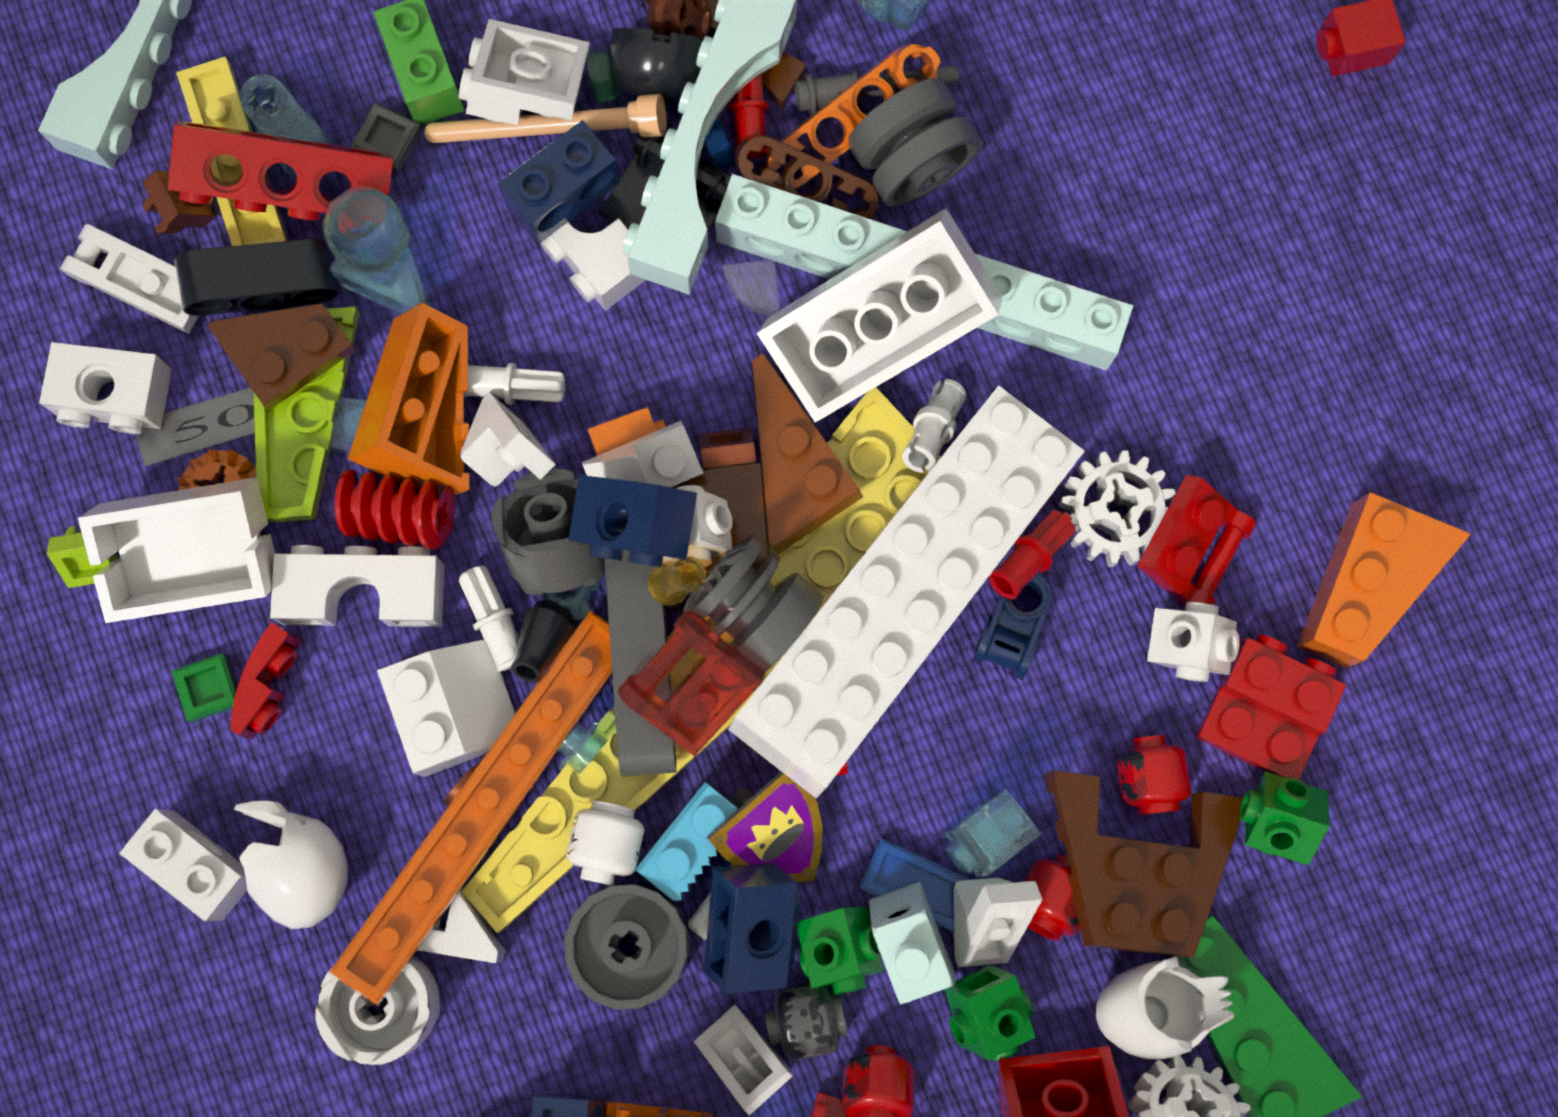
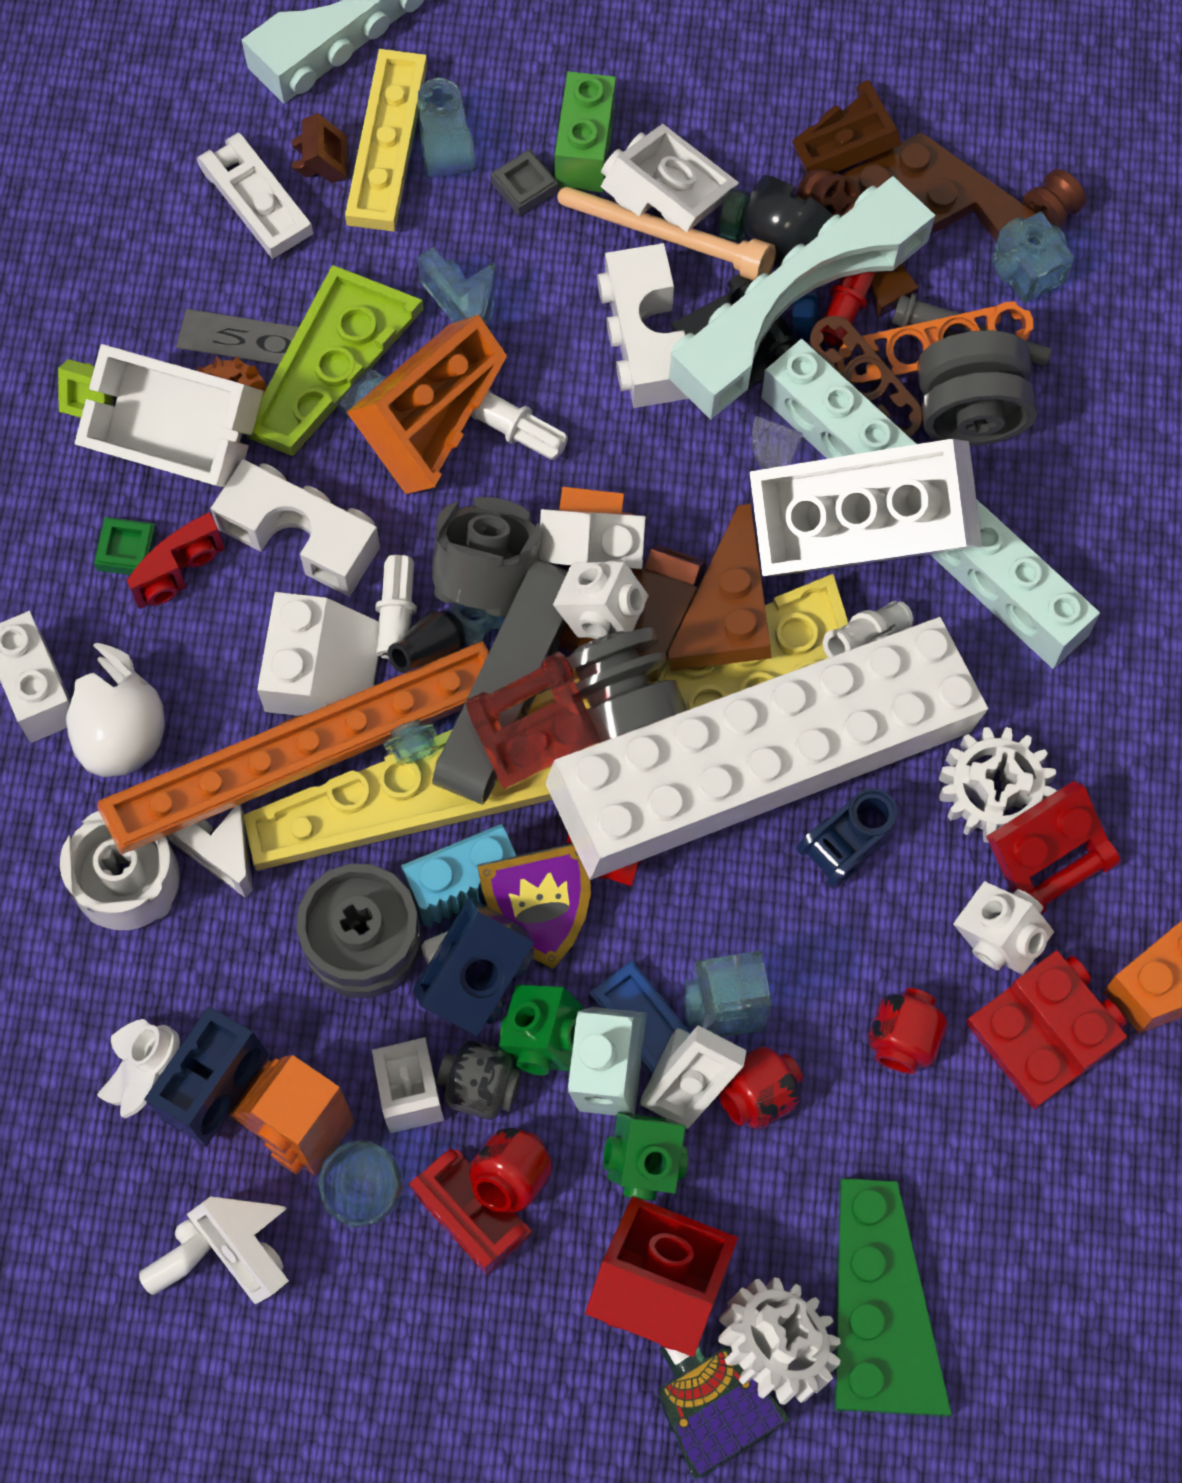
camera: 30 degrees right, 10 degrees down
(79, 372) = (168, 243): white brick -> none
(198, 144) = (362, 105): red brick -> none
(255, 277) = (352, 236): black beam -> none
(282, 348) = (343, 302): reddish brown wing -> none
(365, 230) = (464, 236): clear light blue hair -> none
(393, 514) = (362, 474): red piece -> none
(501, 444) = (481, 464): white slope -> none
(559, 182) = (648, 273): dark blue brick -> none
(605, 842) = (388, 829): white head -> none
(632, 517) = (556, 559): dark blue brick -> none
(675, 580) = (567, 633): clear yellow pin -> none
(1032, 554) = (895, 776): red axle -> none
(1136, 890) = (838, 1115): reddish brown wing -> none
(1161, 1009) = (803, 1228): white helmet -> none
(1285, 817) = (1008, 1124): green brick -> none

